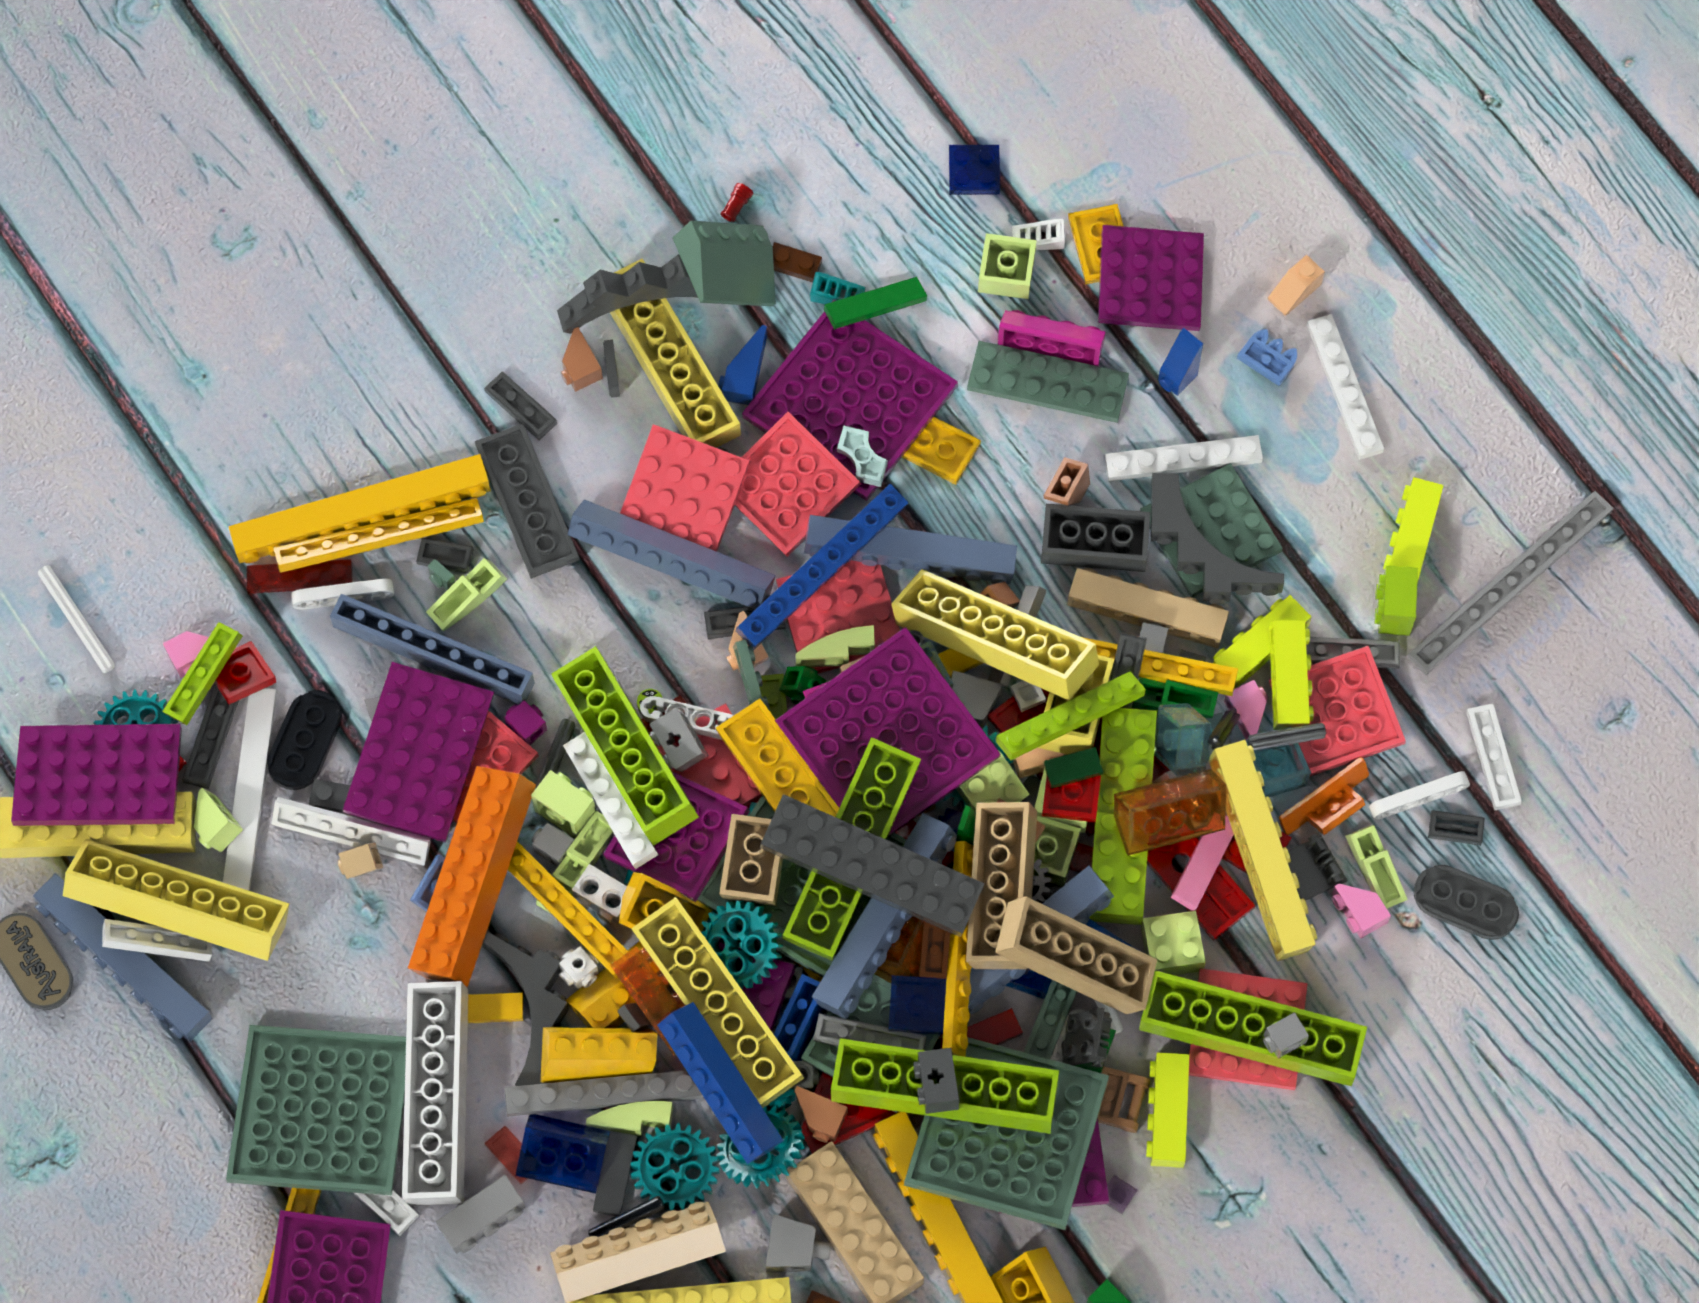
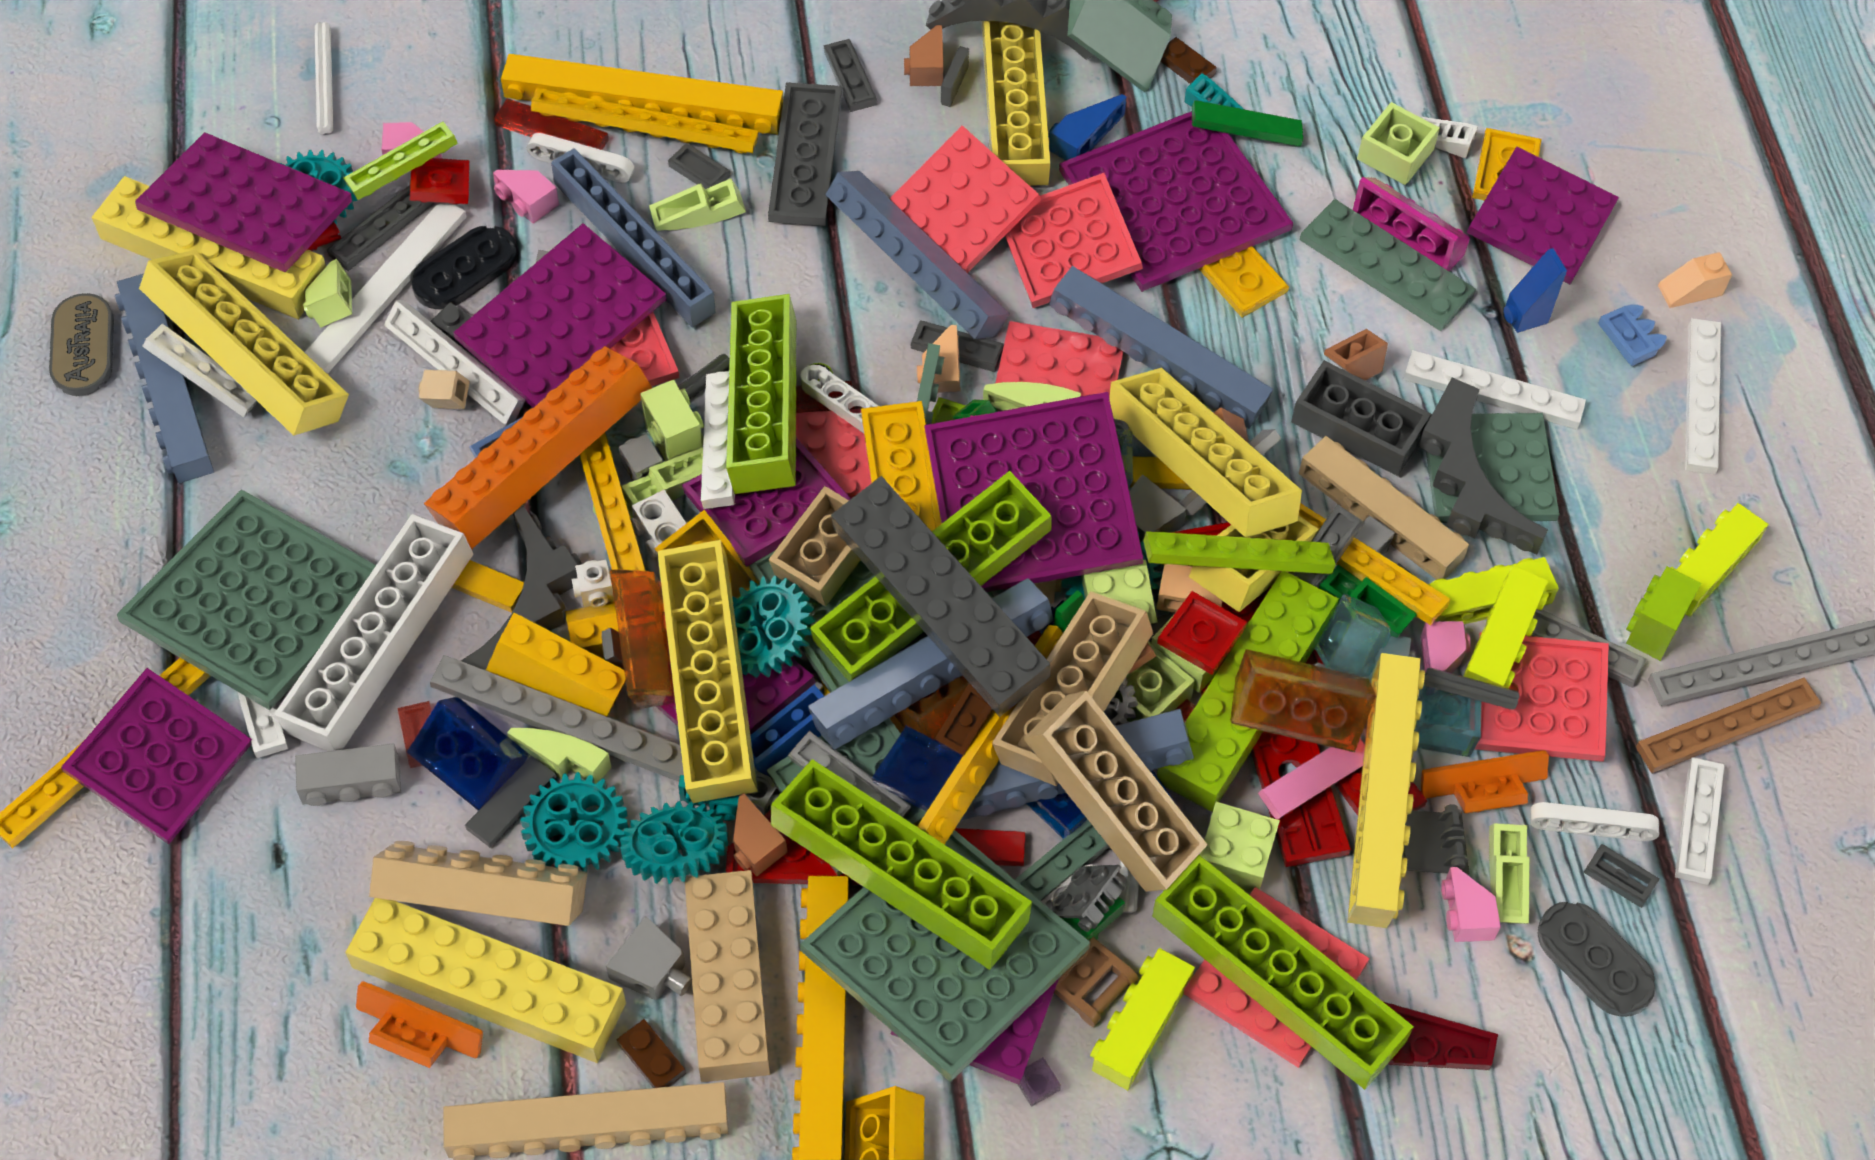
camera: 25 degrees right, 10 degrees down
(317, 647) = (527, 191): none -> bright pink slope
(440, 575) = (681, 179): sand green plate -> none
(526, 721) = (684, 340): magenta brick -> none
(629, 1217) = (487, 848): black axle -> none
(690, 747) = (819, 411): light grey brick -> none
(720, 1082) = (659, 746): blue brick -> none
(821, 566) = (1056, 312): blue brick -> none
(868, 465) = (1160, 256): light aqua tile -> none
(937, 1065) = (888, 862): dark grey brick -> none
(974, 170) = (1410, 56): clear blue plate -> none
(1027, 695) = (1208, 524): white plate -> none
(1073, 767) = (1215, 606): dark green tile -> none
(1223, 728) = (1404, 646): black axle -> none
(1285, 1036) = (1311, 988): light grey brick -> none
(1387, 1021) = (1444, 1043): none -> dark red wing
(1482, 668) = (1728, 725): none -> medium nougat plate

